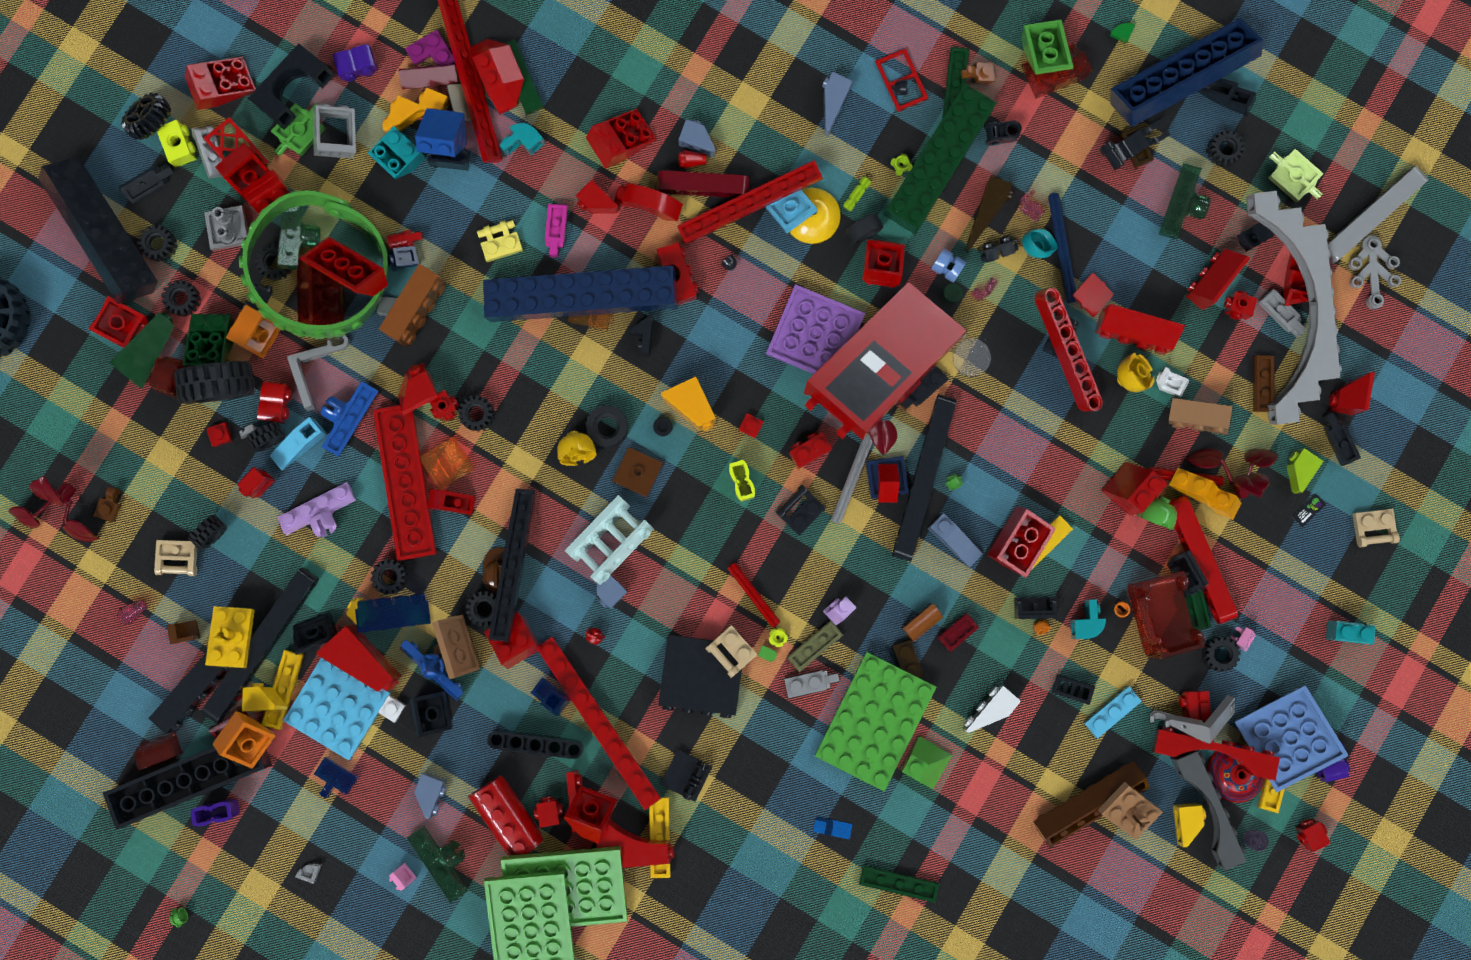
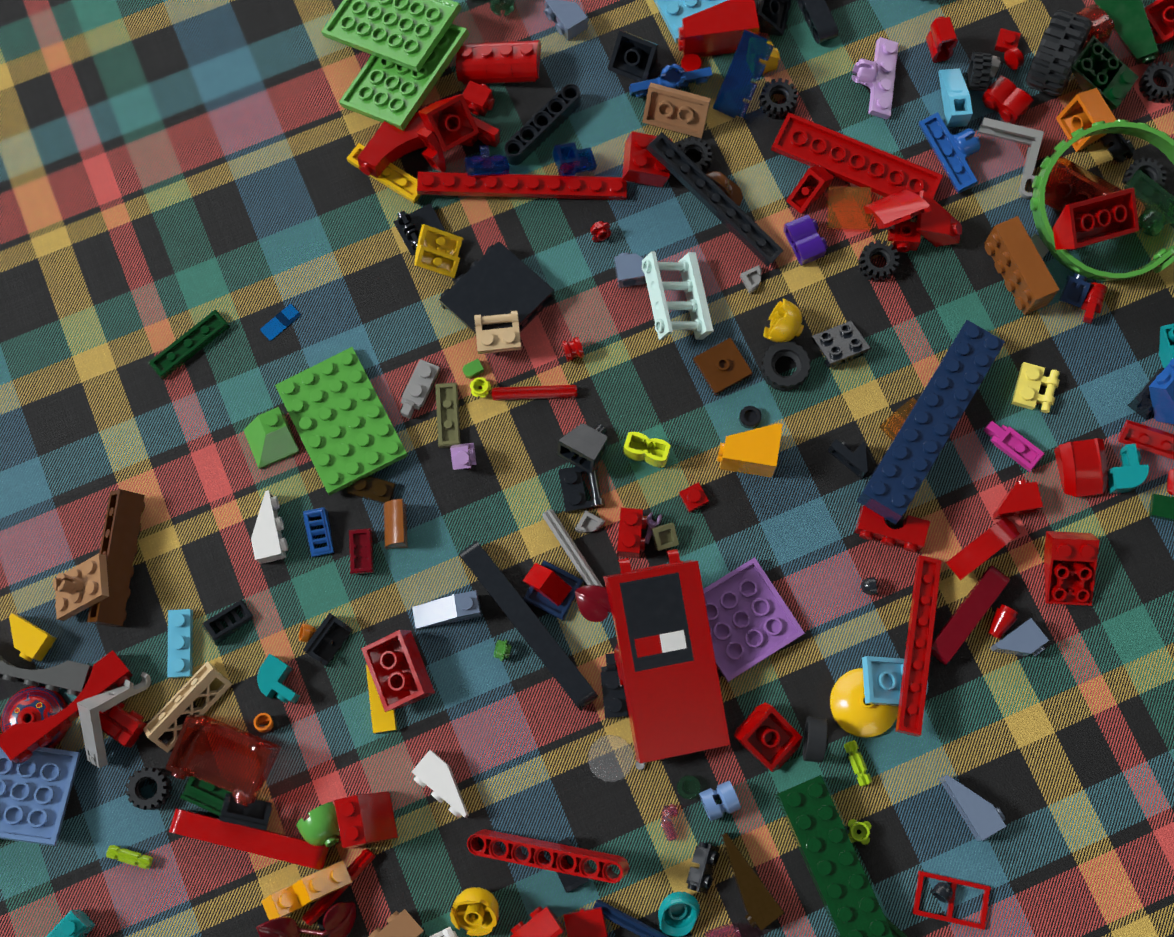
camera: 135 degrees right, 10 degrees down
(233, 419) = (1014, 58): none -> red tile
(392, 709) = (660, 33): white plate -> none
(403, 666) = (691, 62): none -> red tile
(430, 422) = (897, 208): none -> red slope
(496, 477) = (805, 240): none -> dark purple brick
(540, 171) = (1082, 467): none -> red slope
(553, 497) = (751, 278): none -> light grey tile
(561, 398) = (841, 343): none -> black hinge
(601, 762) = (485, 164): none -> clear blue plate
(619, 811) = (433, 153): none -> red slope
(697, 746) = (438, 251): none -> yellow slope
(702, 589) = (572, 349): none -> red wheel
(771, 526) = (584, 446): none -> black torso
(791, 441) = (651, 524): none -> lavender hand
(794, 425) = (664, 536): none -> olive plate
(822, 486) = (589, 523): none -> light grey tile
(951, 680) = (314, 513): none -> blue slope
(1069, 462) = (439, 777): none -> white slope
(1151, 675) = (181, 701): none -> tan fence
(1245, 639) = (142, 822): bright pink tile -> none
(1271, 632) = (129, 857): none -> lime axle

